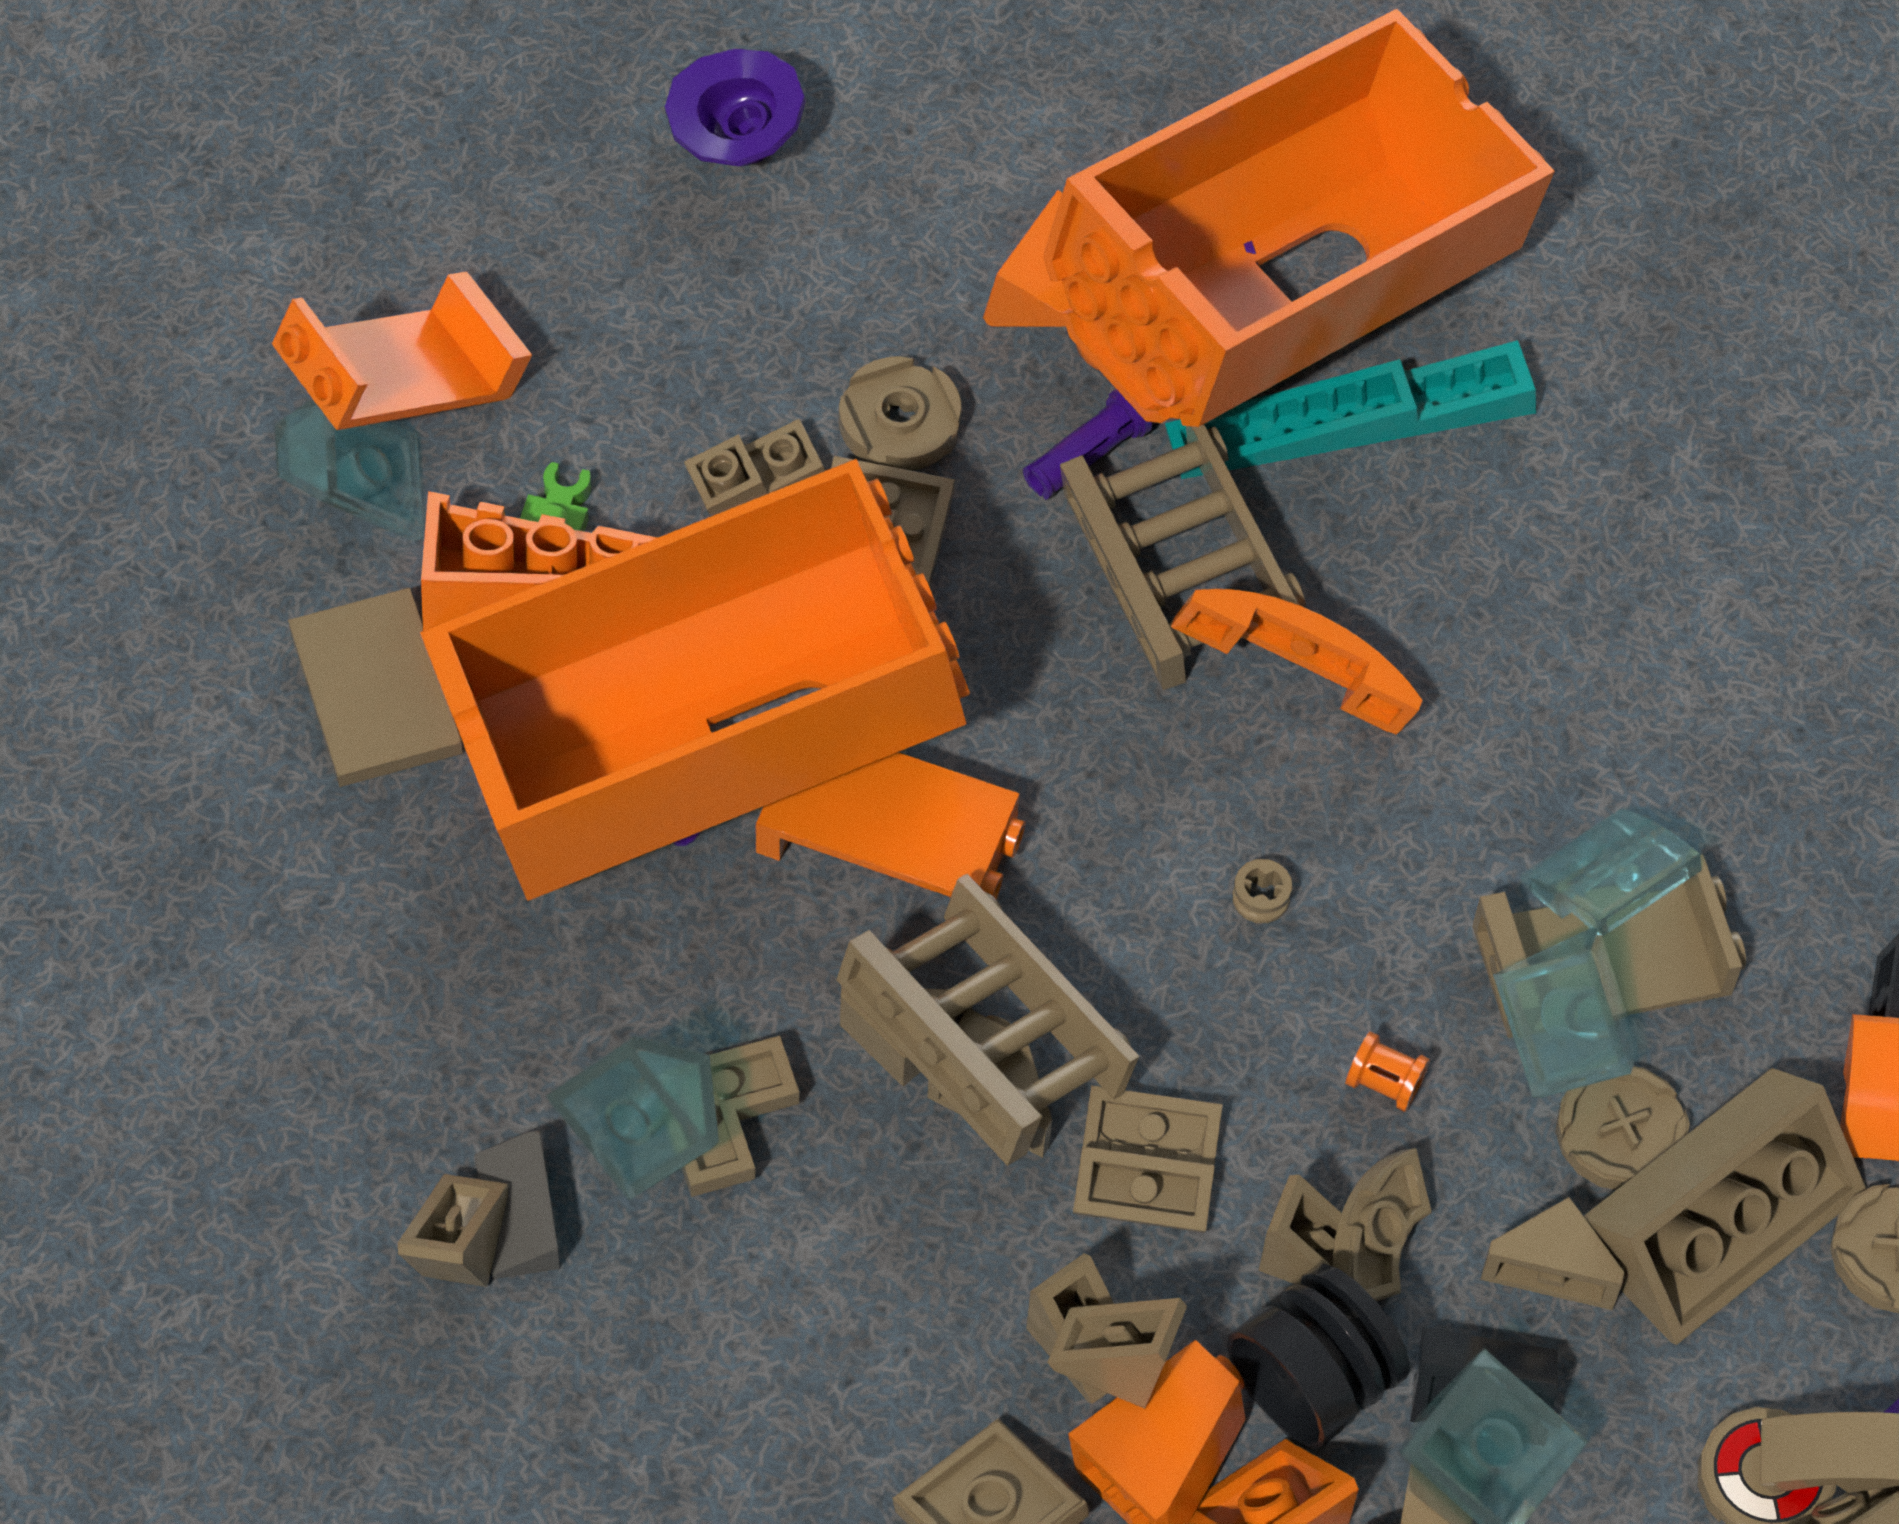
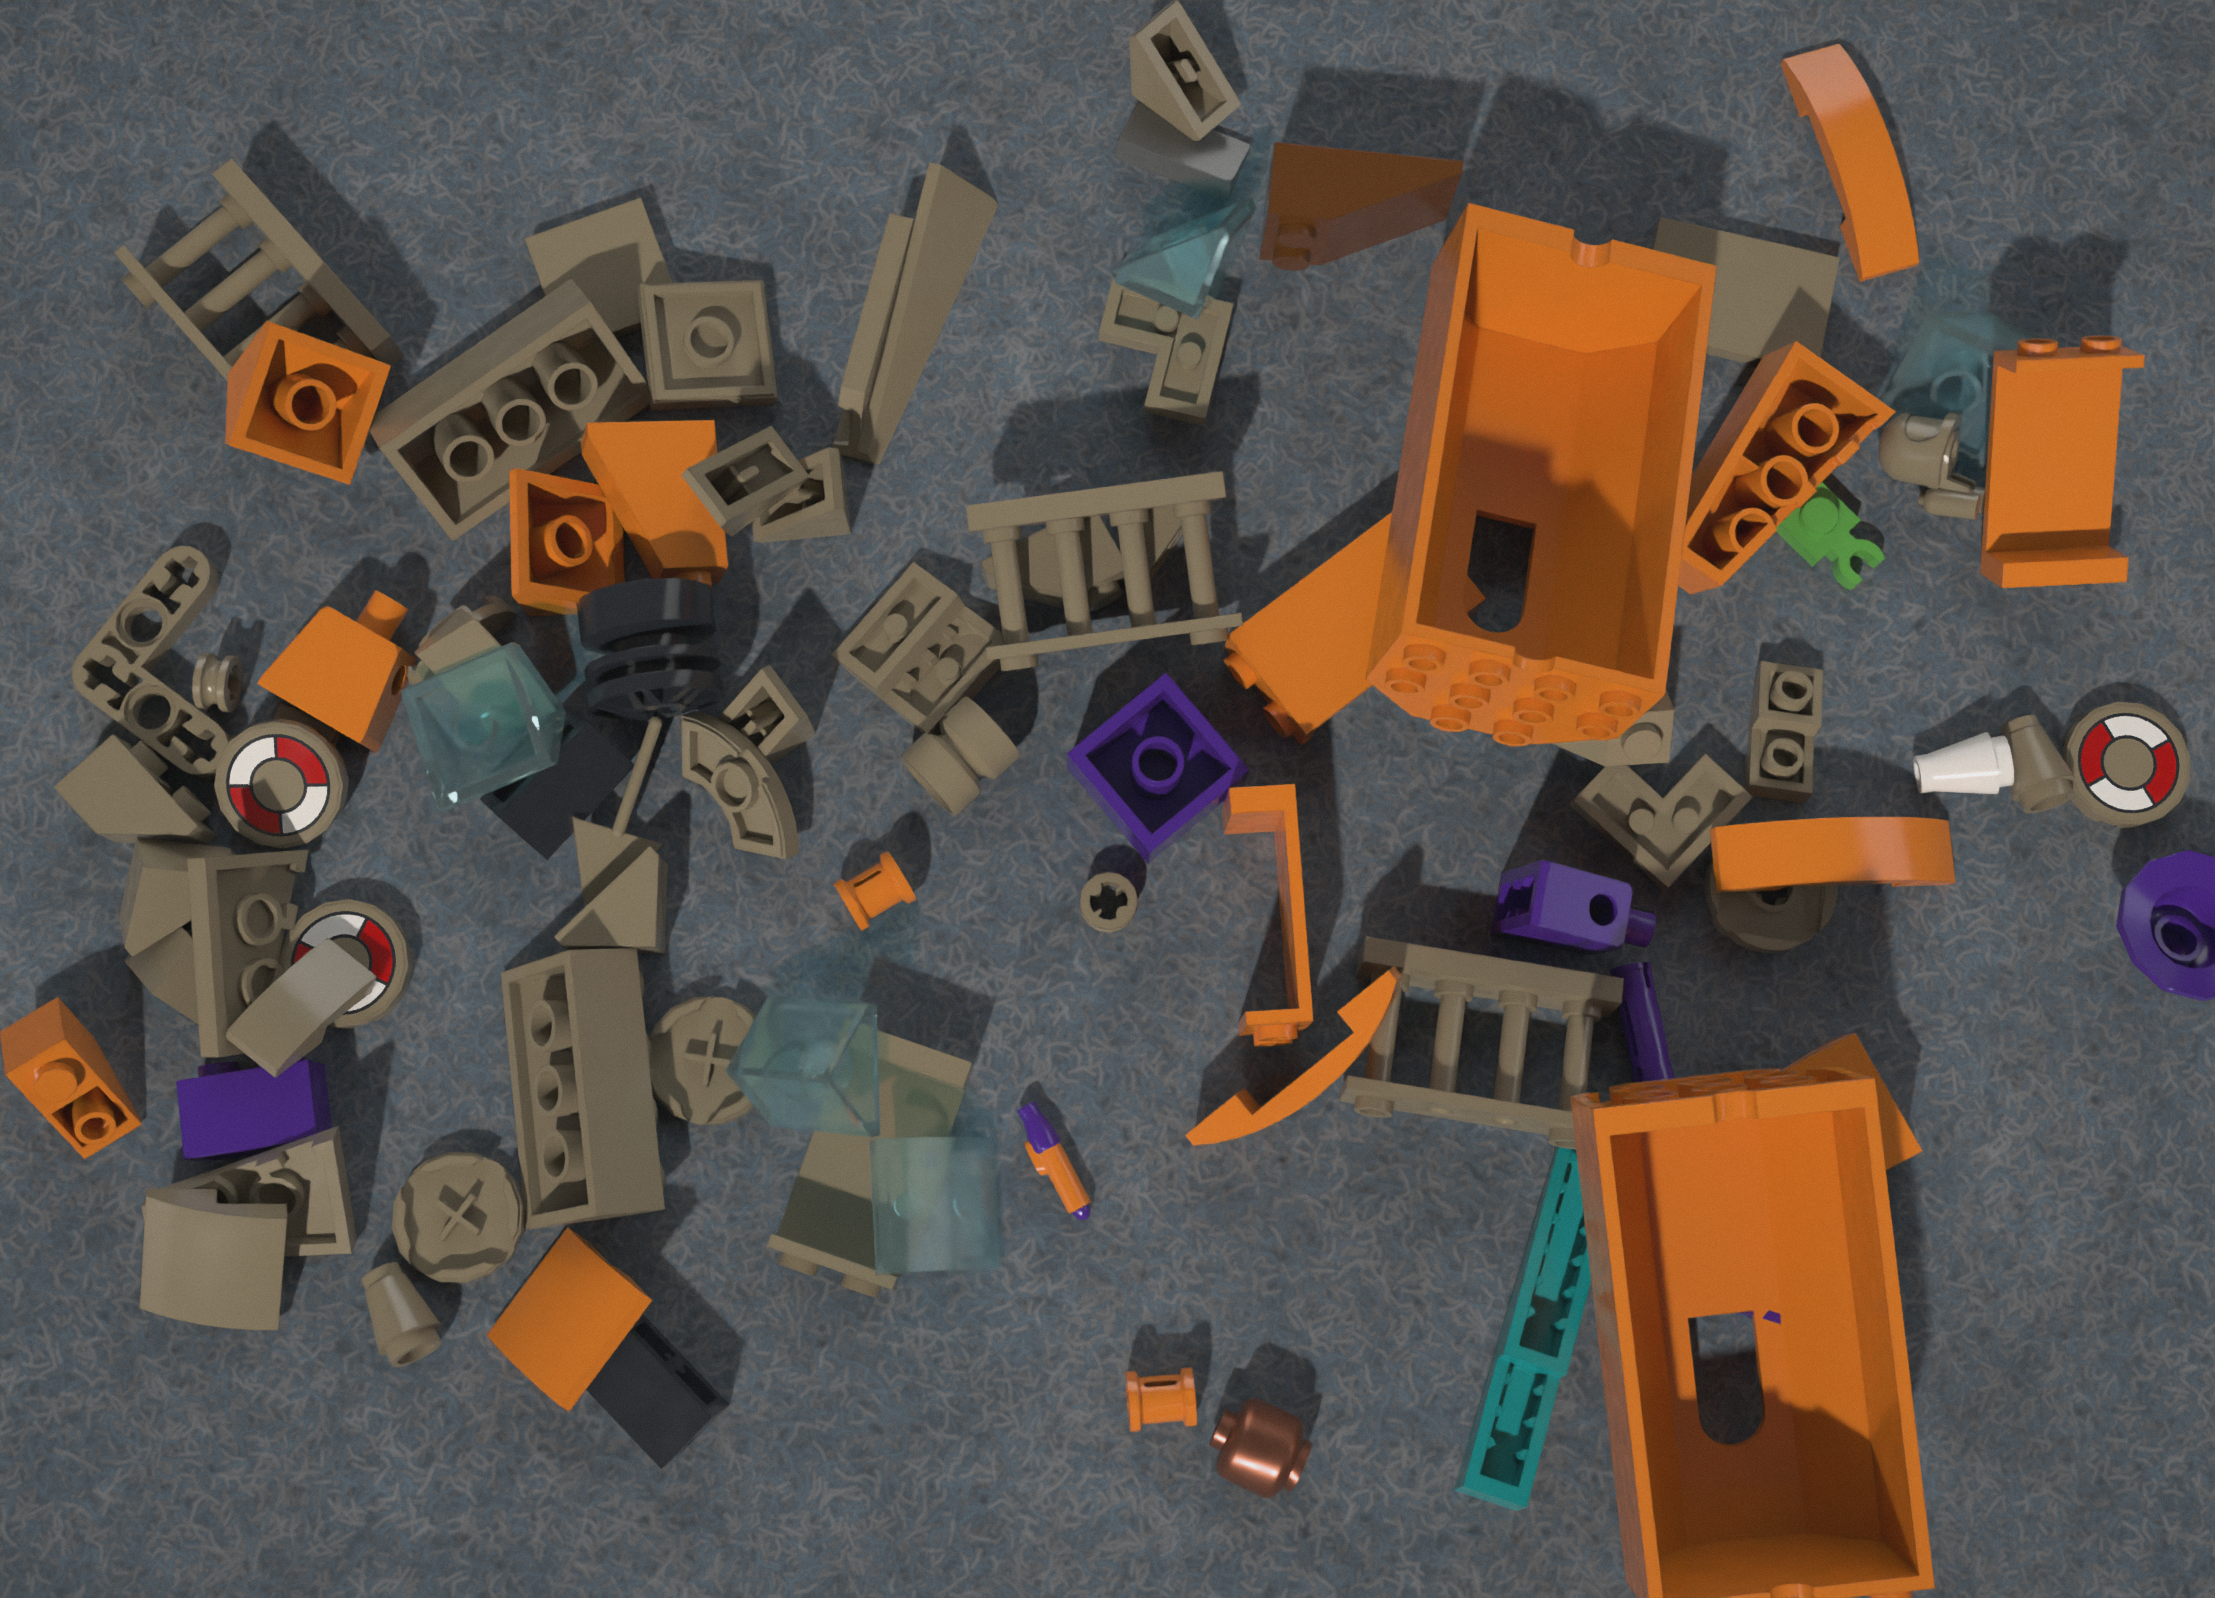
camera: 120 degrees right, 20 degrees up
(170, 655) = (1858, 158): none -> orange slope
(446, 461) = (1926, 454): none -> dark tan piece
(507, 1011) = (1347, 200): none -> reddish brown slope
(616, 223) = (2126, 764): none -> tile
(664, 278) = (2040, 772): none -> dark tan cone
(697, 323) = (1969, 766): none -> white cone
(836, 1362) = (906, 307): none -> dark tan wedge
(852, 373) = (1832, 853): none -> orange slope
(1026, 511) = (1569, 910): none -> dark purple torso
(1117, 764) = (1275, 810): none -> orange panel
(1128, 897) = (1156, 768): none -> dark purple brick
(1225, 1062) = (957, 759): none -> dark tan wheel
(1503, 821) = (1050, 1159): none -> piece
(1510, 1311) = (608, 851): none -> dark tan piece
(1611, 545) = (1260, 1448): none -> copper head
(1630, 635) = (1160, 1399): none -> orange bush

